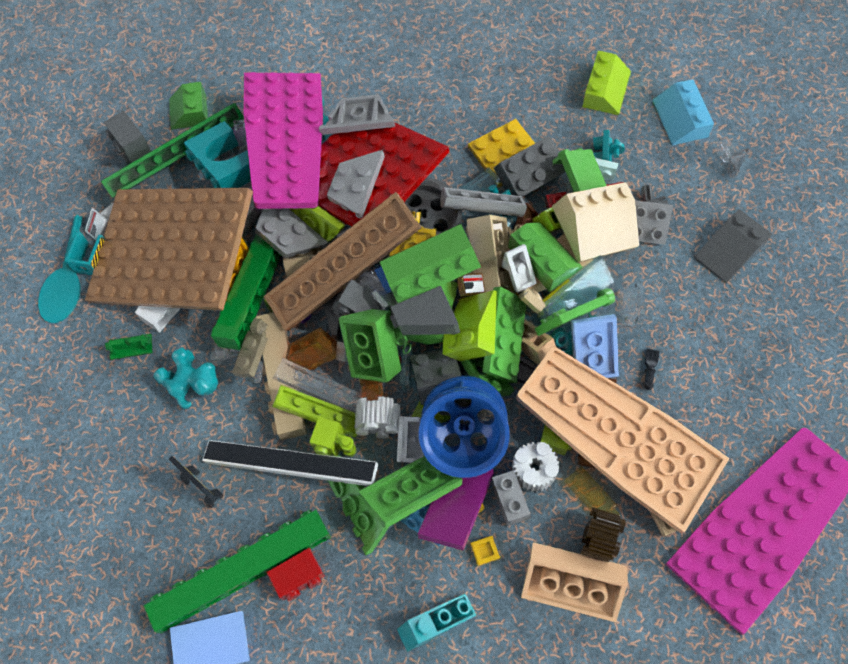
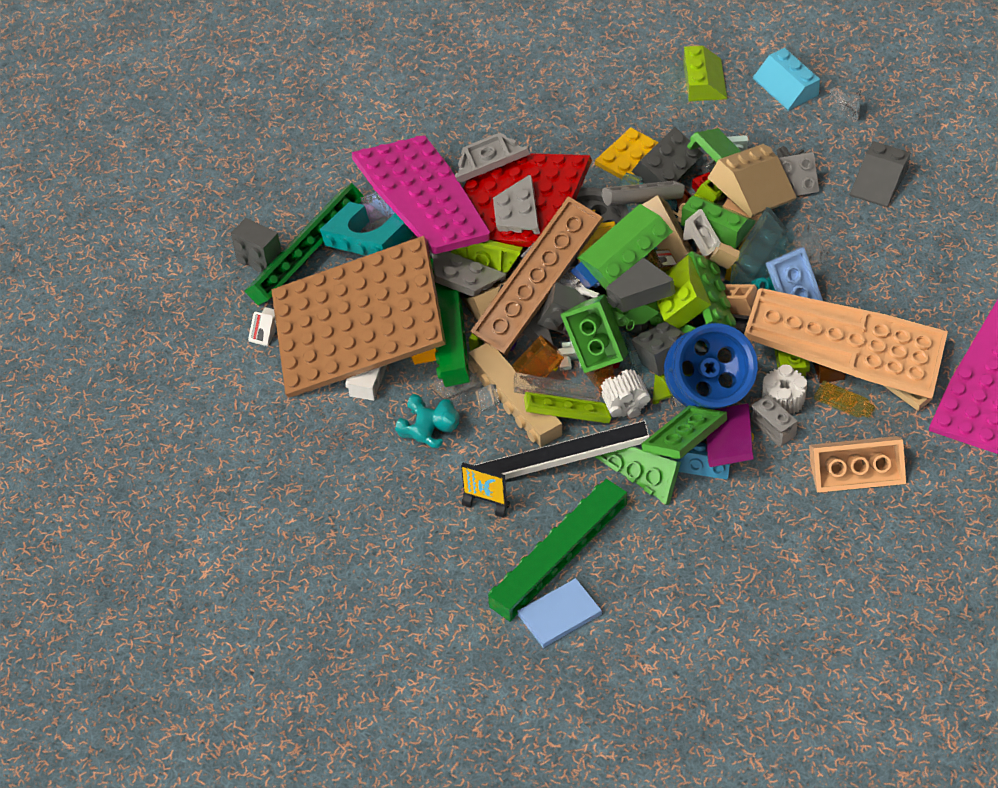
camera: 20 degrees left, 15 degrees down
(61, 288) = (252, 394): teal piece -> none
(77, 252) = (260, 363): teal piece -> none
(130, 346) = (353, 418): green hinge -> none
(188, 106) = (295, 204): bright green slope -> none
(251, 350) = (481, 376): dark tan hinge -> none
(296, 575) = (612, 535): red brick -> none
(330, 438) = (590, 418): lime brick -> none
(408, 439) = (661, 403): white hinge -> none
(435, 622) = (751, 530): teal slope -> none
(485, 550) = (769, 469): yellow tile -> none
(602, 535) = (865, 417): dark brown brick -> none
(604, 298) = (759, 258): bright green plate -> none
(609, 147) = (738, 124): teal hips -> none
(651, 362) = (848, 285): black piece -> none

